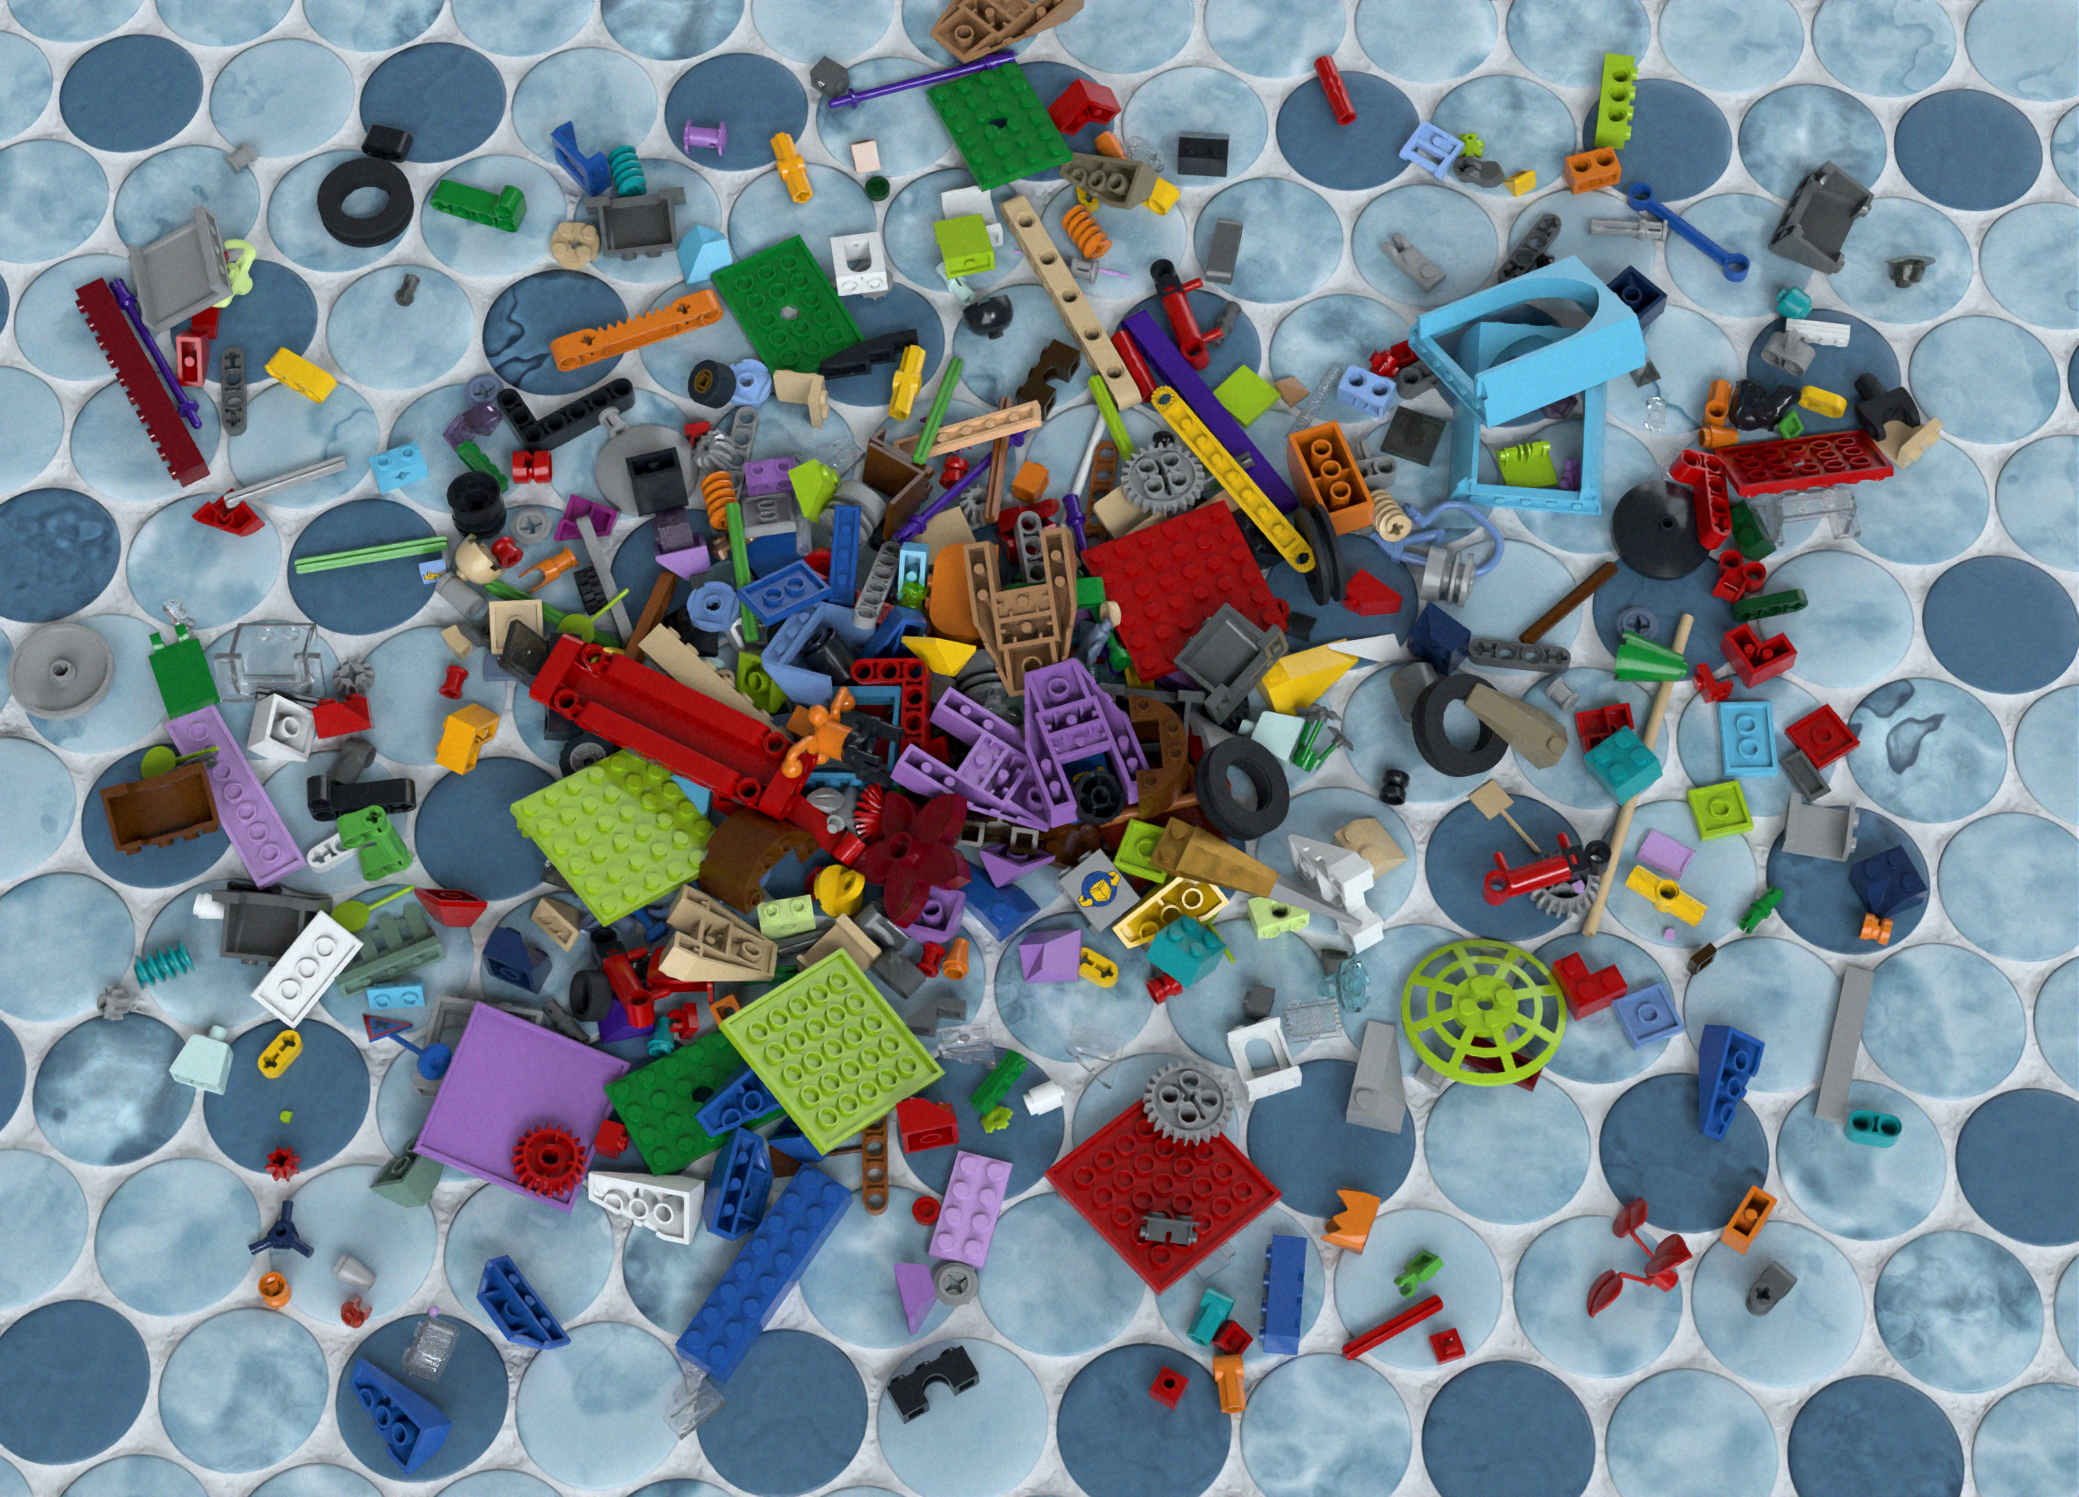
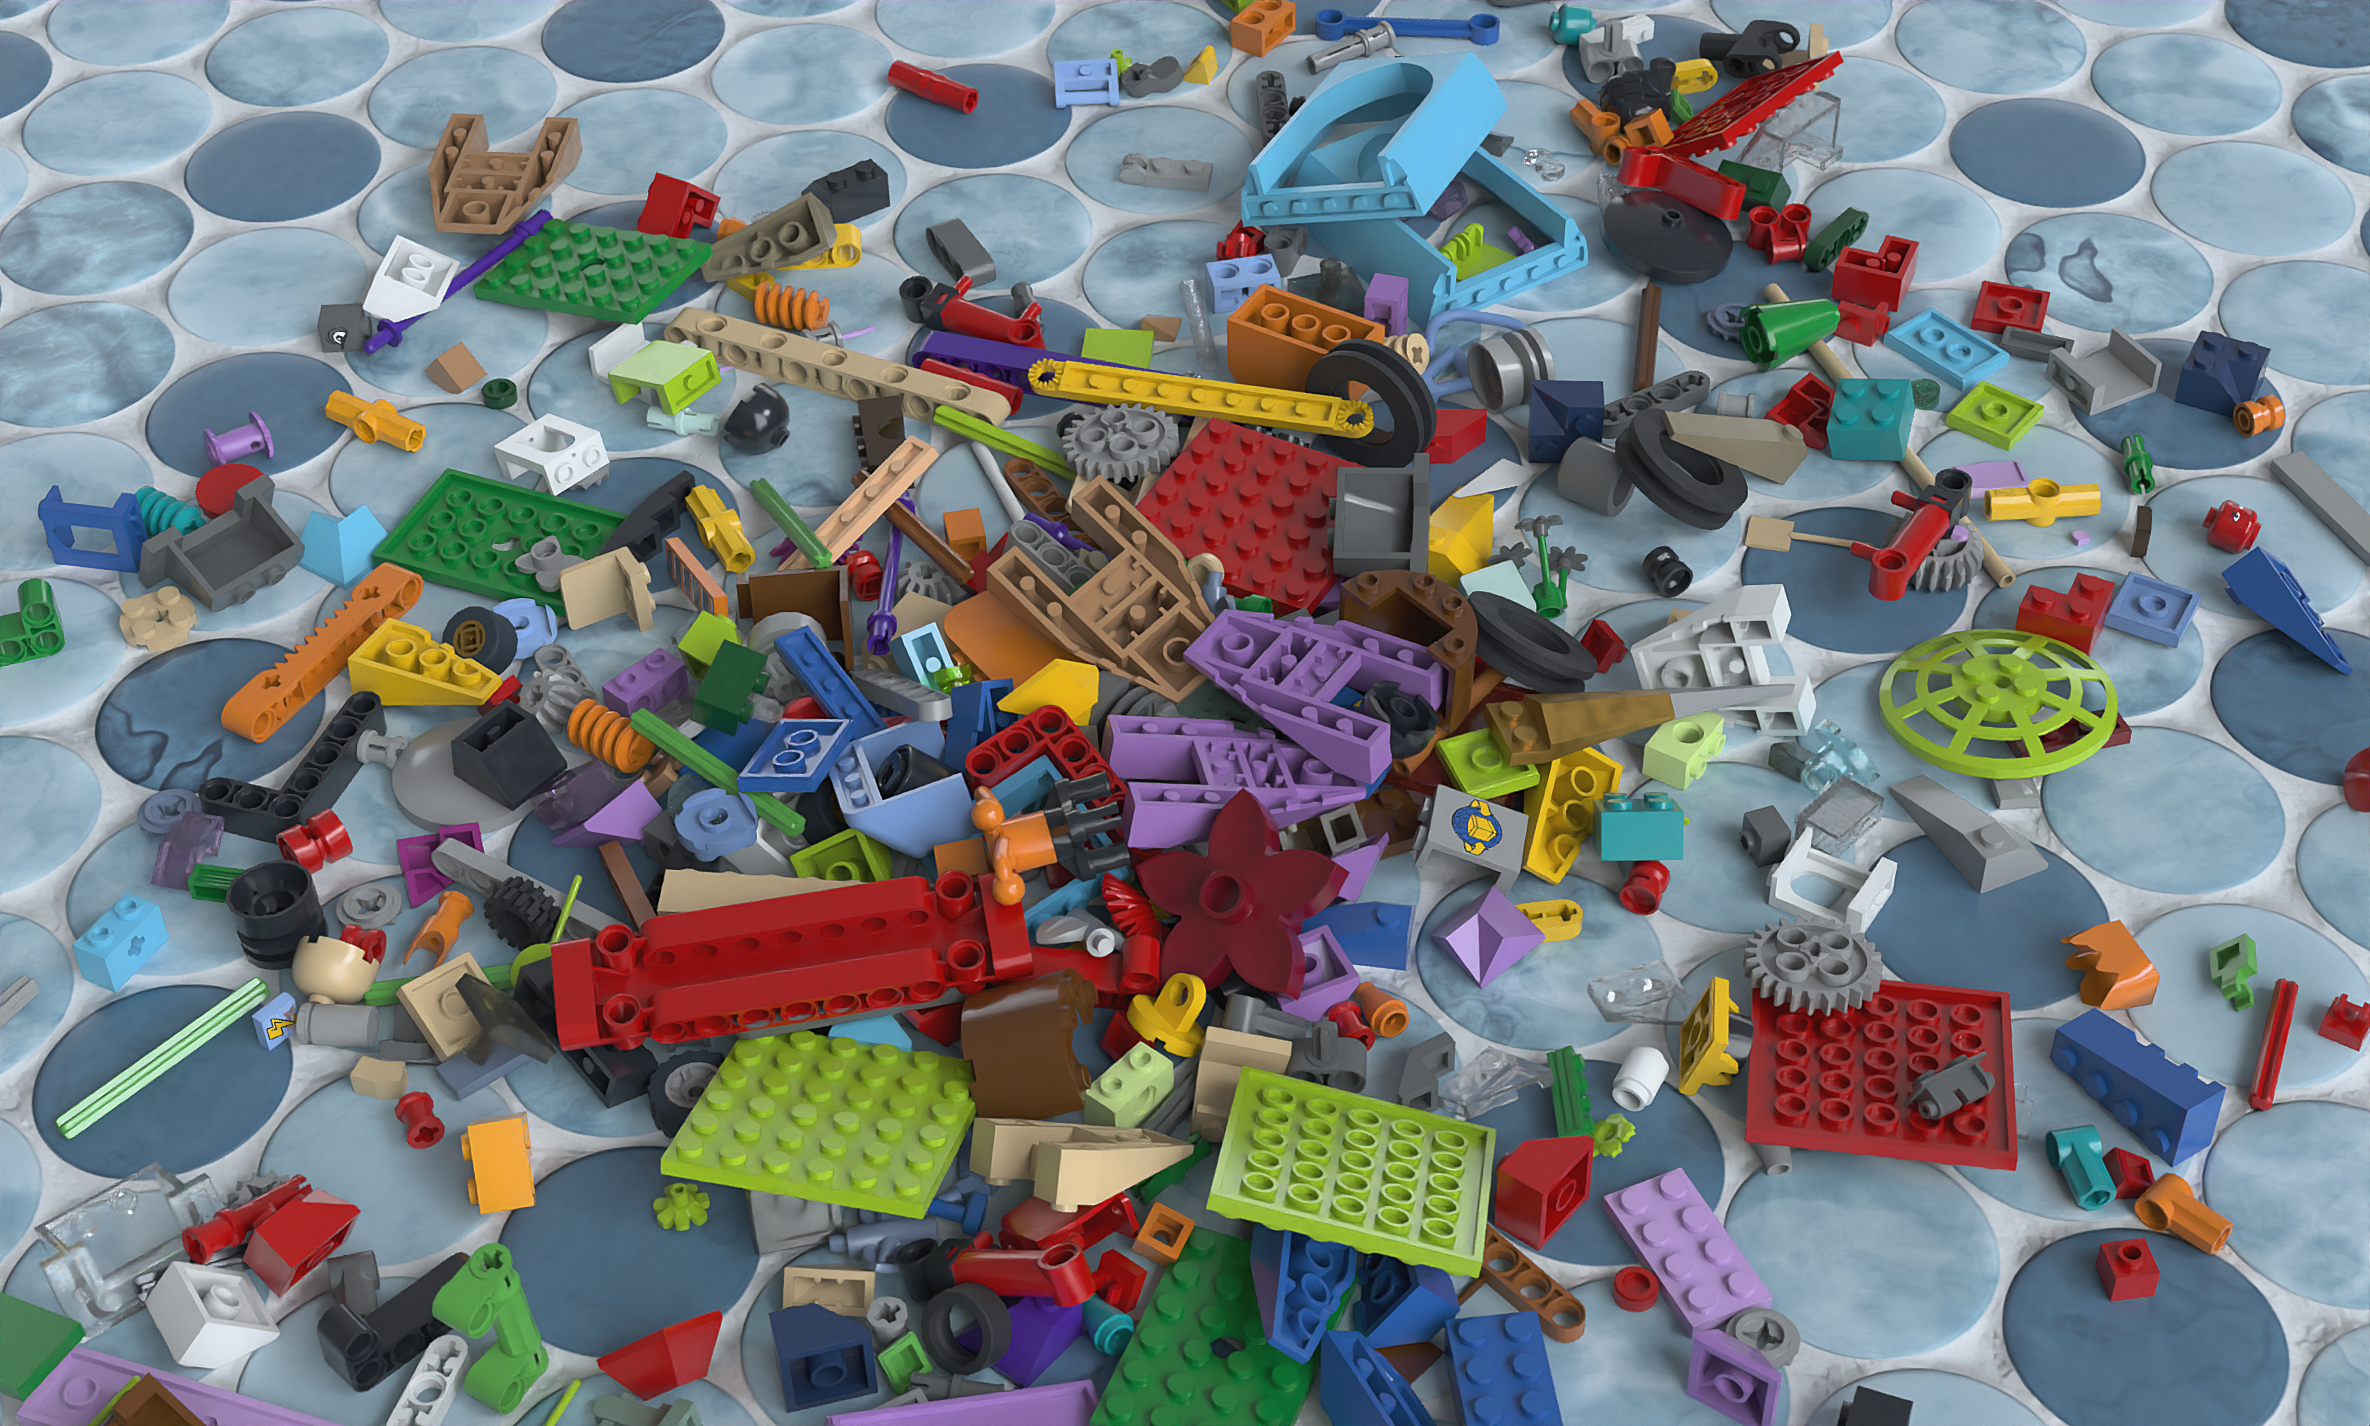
camera: 40 degrees left, 20 degrees down
(317, 689) = (231, 1225): none -> red pin
(556, 988) = (901, 1359): none -> bright green slope
(564, 964) = (887, 1321): none -> light grey bush
(666, 382) = (413, 669): none -> yellow wedge
(678, 169) = (218, 487): none -> red tile
(786, 523) = (730, 687): none -> dark green brick
(793, 351) = (546, 562): none -> light grey animal
(854, 420) = (694, 579): none -> orange tile
(887, 68) = (409, 281): none -> white slope
(1095, 1108) = (1713, 1040): none -> yellow piece
(1302, 813) = (1603, 645): none -> red tile
(1417, 480) = (1388, 303): none -> medium lavender brick
(1691, 757) = (1931, 394): none -> clear green bush
(1731, 439) = (1649, 129): none -> orange plate
(1760, 995) = (2231, 527): none -> red head

